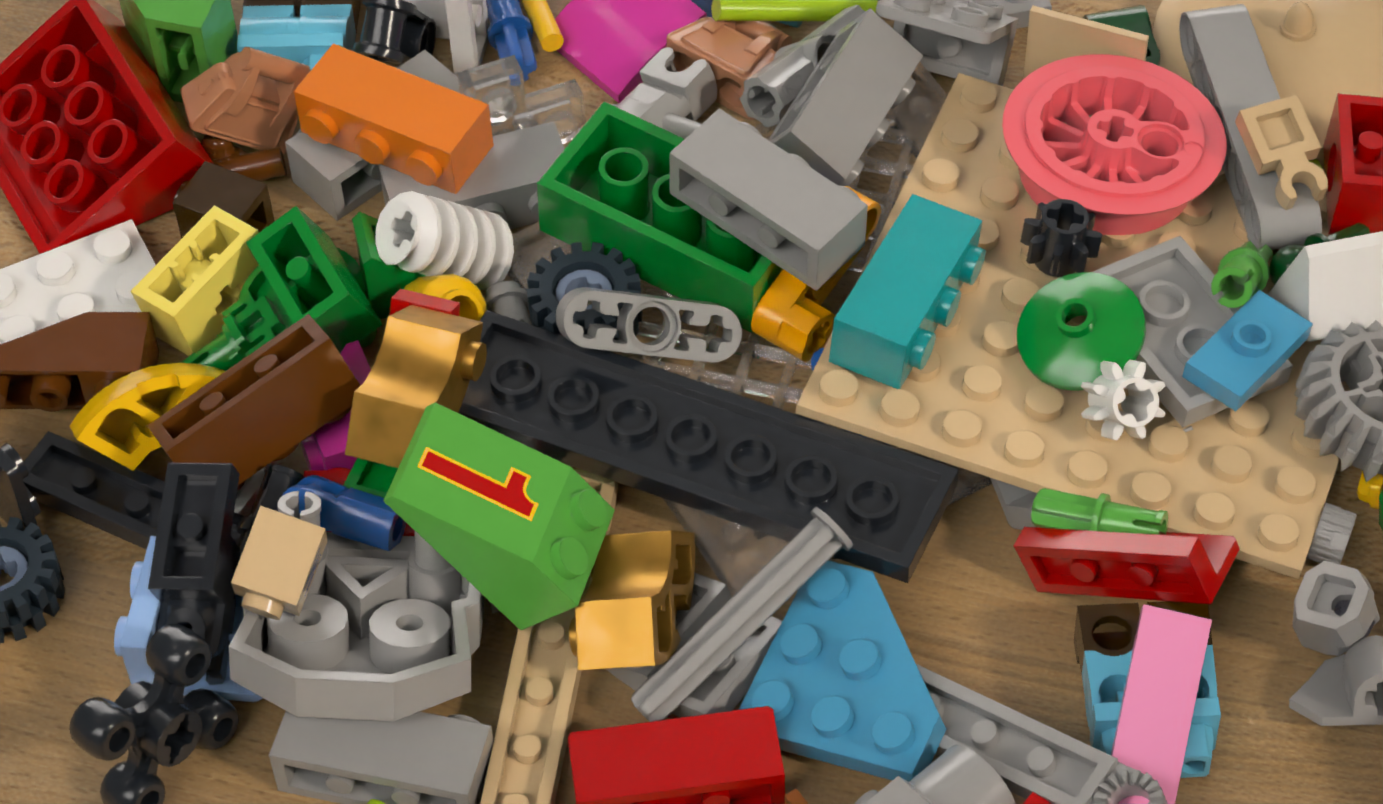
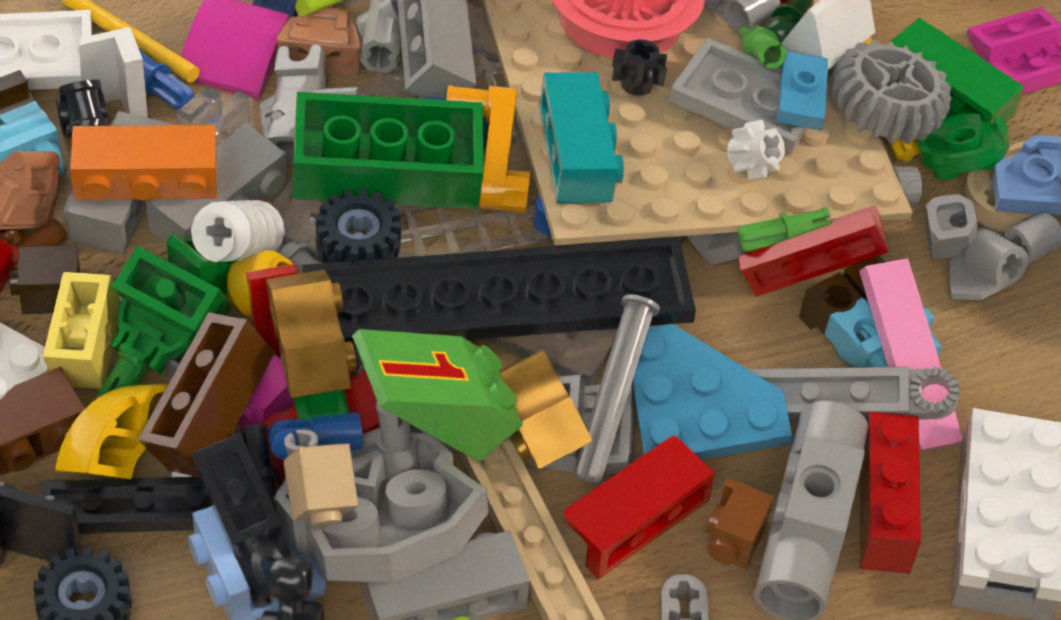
camera: 40 degrees left, 0 degrees up
(690, 348) = (405, 223): light grey beam -> none
(768, 198) = (460, 110): light grey brick -> none
(1072, 354) = (690, 136): green dish -> none

